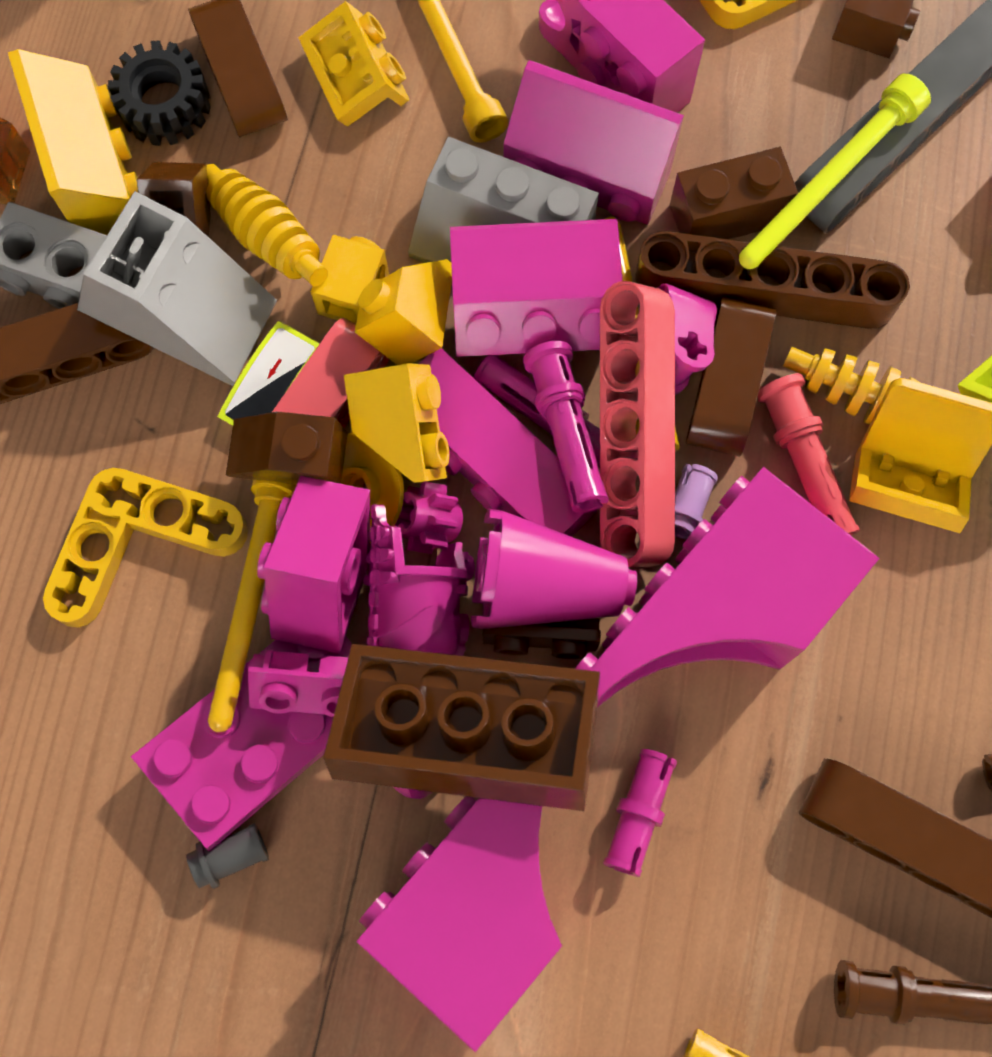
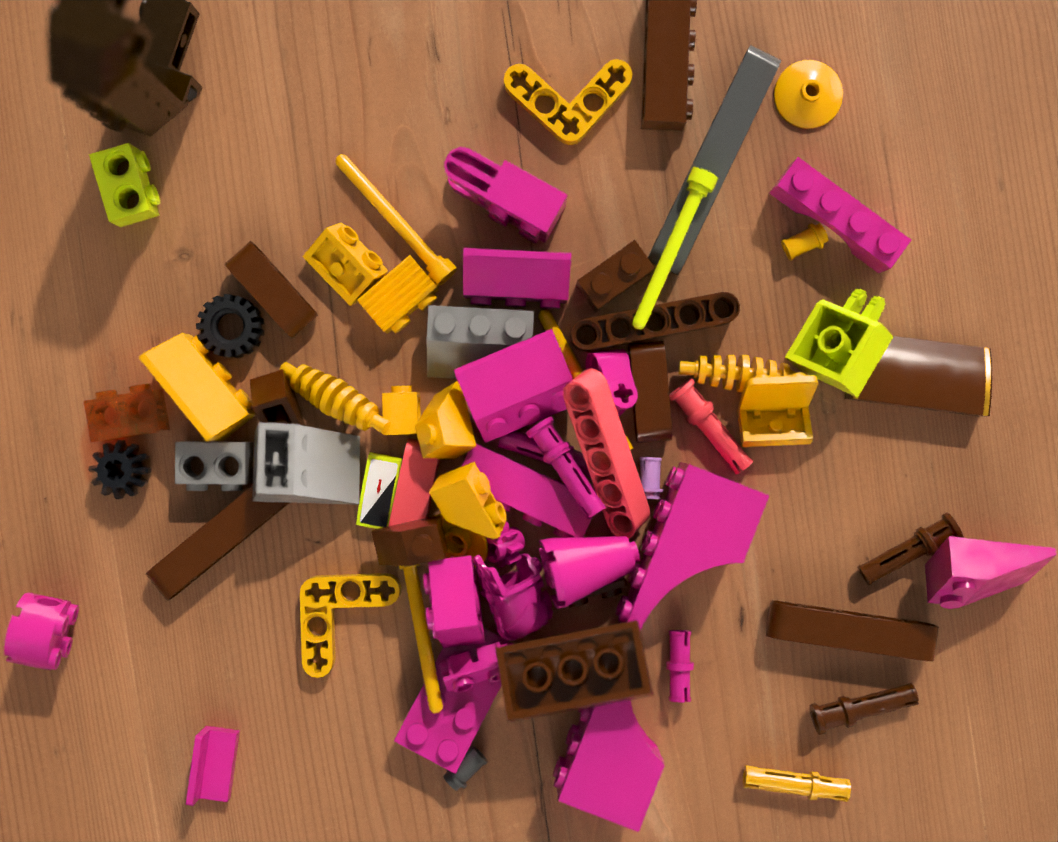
camera: 20 degrees left, 15 degrees up
(409, 125) = (399, 296): none -> yellow brick

